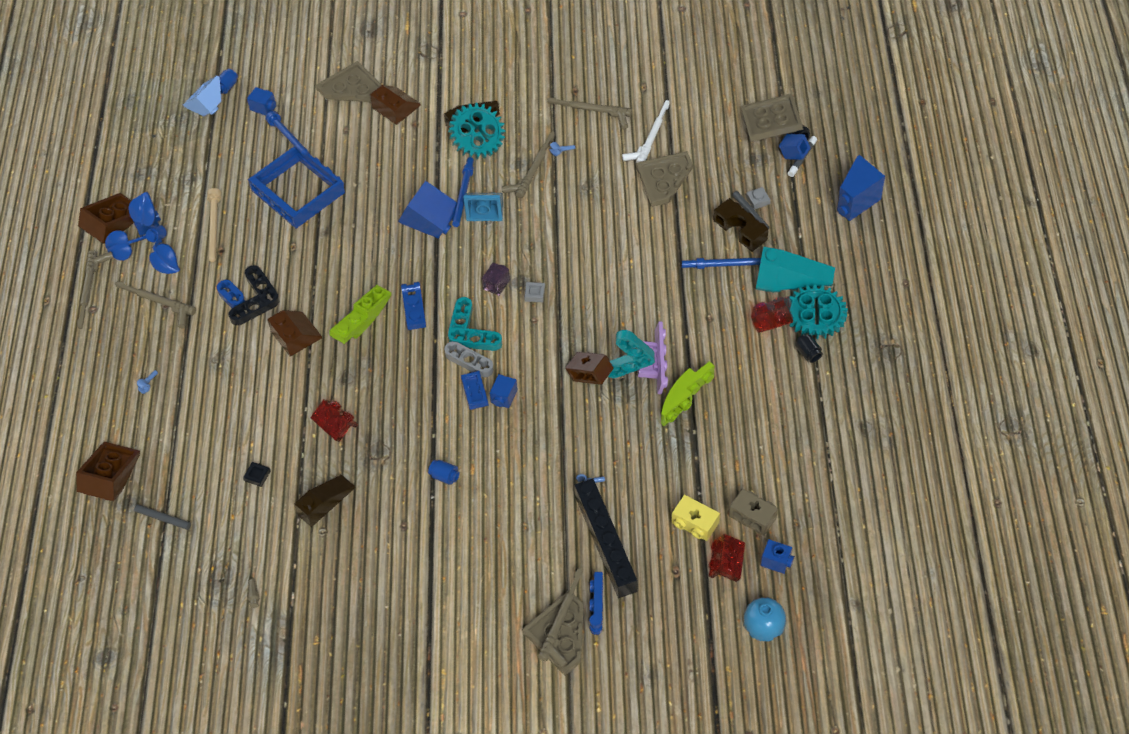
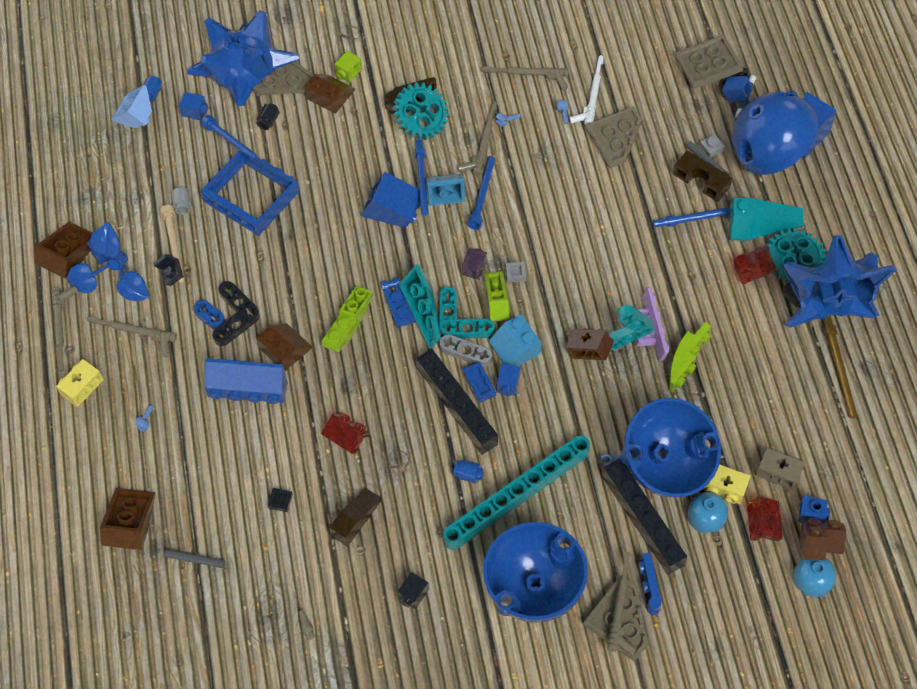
camera: 10 degrees left, 5 degrees up
(93, 340) = (79, 382): none -> light yellow brick
(204, 246) = (170, 269): none -> black bracket
(229, 186) = (181, 200): none -> light grey brick
(248, 358) = (245, 381): none -> slope
(316, 60) = (241, 56): none -> blue piece
(330, 119) = (267, 116): none -> black brick
(362, 576) = (412, 591): none -> black brick
(418, 82) = (348, 66): none -> lime brick
(434, 302) = (421, 301): none -> teal wedge
(448, 405) = (457, 401): none -> black brick
(475, 560) = (528, 558): none -> blue piece
(479, 505) = (514, 500): none -> teal beam
(507, 238) = (475, 220): none -> blue piece
(510, 312) = (496, 296): none -> lime slope
(519, 357) = (516, 342): none -> dark azure slope
(618, 143) = (562, 106): none -> medium blue hand
(650, 457) = (671, 429): none -> blue piece
(671, 543) = (707, 512): none -> dark azure cylinder
(777, 582) = (821, 538): none -> reddish brown brick
(817, 188) = (774, 132): none -> blue piece
(836, 389) = (831, 331): none -> pearl gold bar
(844, 341) = (837, 285): none -> blue piece

